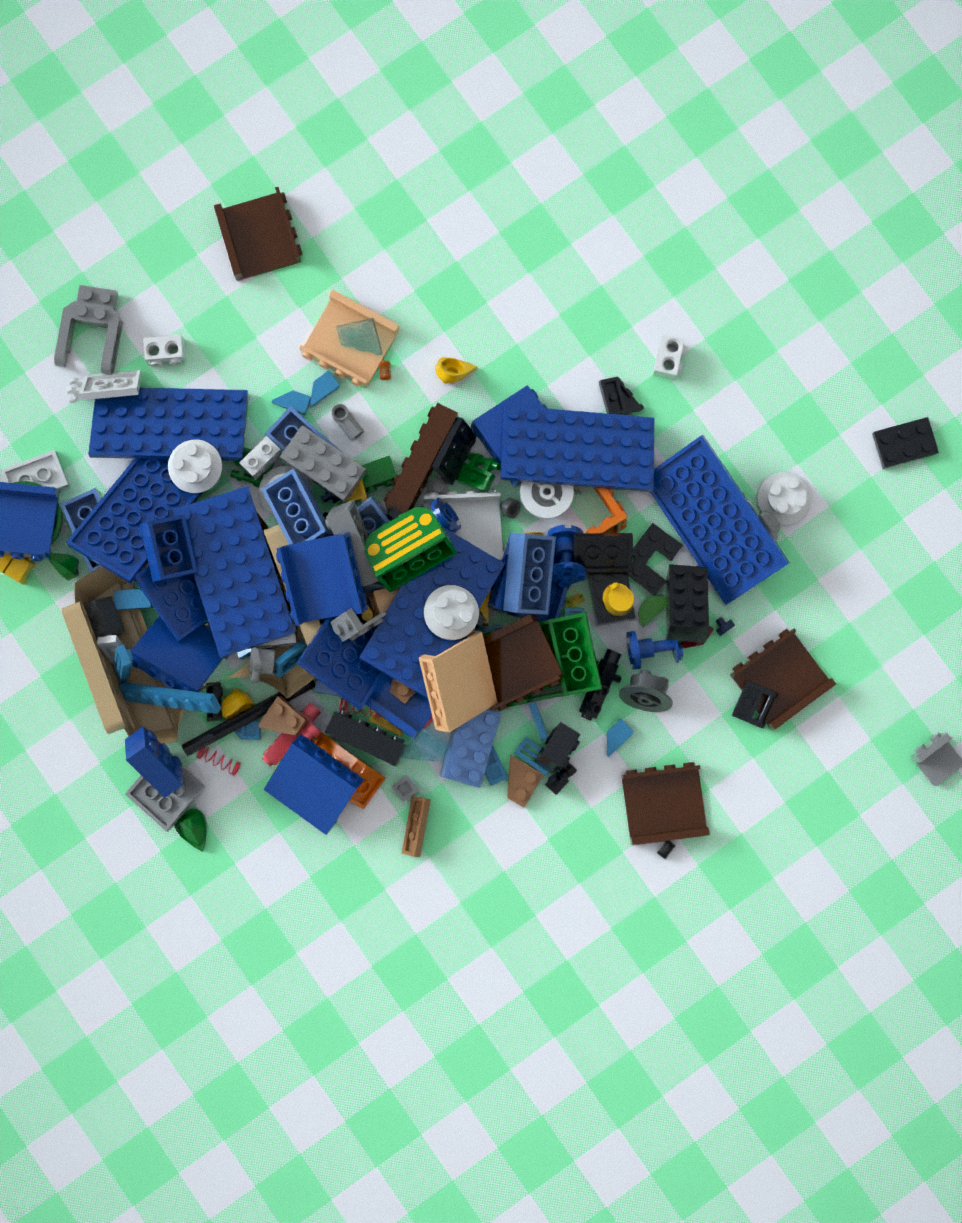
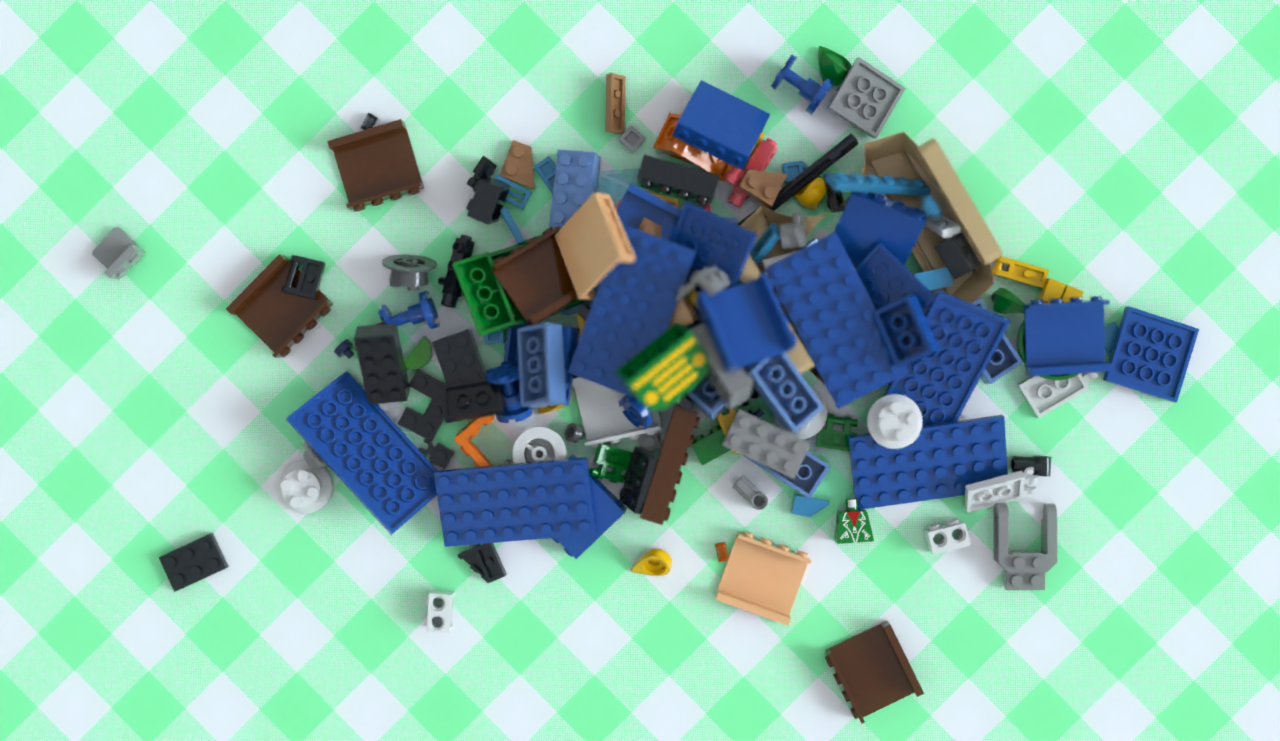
camera: 170 degrees right, 5 degrees up
(44, 593) = (1020, 272): none -> yellow plate
(61, 405) = (1041, 464): none -> black piece
(154, 761) = (882, 117): blue brick -> none
(200, 754) = (802, 127): coral piece -> none
(221, 807) = (808, 88): none -> blue piece
(253, 376) = (852, 524): none -> green torso
(261, 458) = (830, 441): white brick -> none
(323, 387) = (780, 525): dark azure tile -> none
(360, 335) = (752, 582): clear light blue wing -> none
(451, 612) = (612, 312): white piece -> none
(574, 600) = (495, 351): clear yellow tile -> none
(617, 736) = (433, 224): dark azure tile -> none
(618, 599) = (450, 356): yellow hat -> none
(646, 508) = (439, 455): none -> black plate

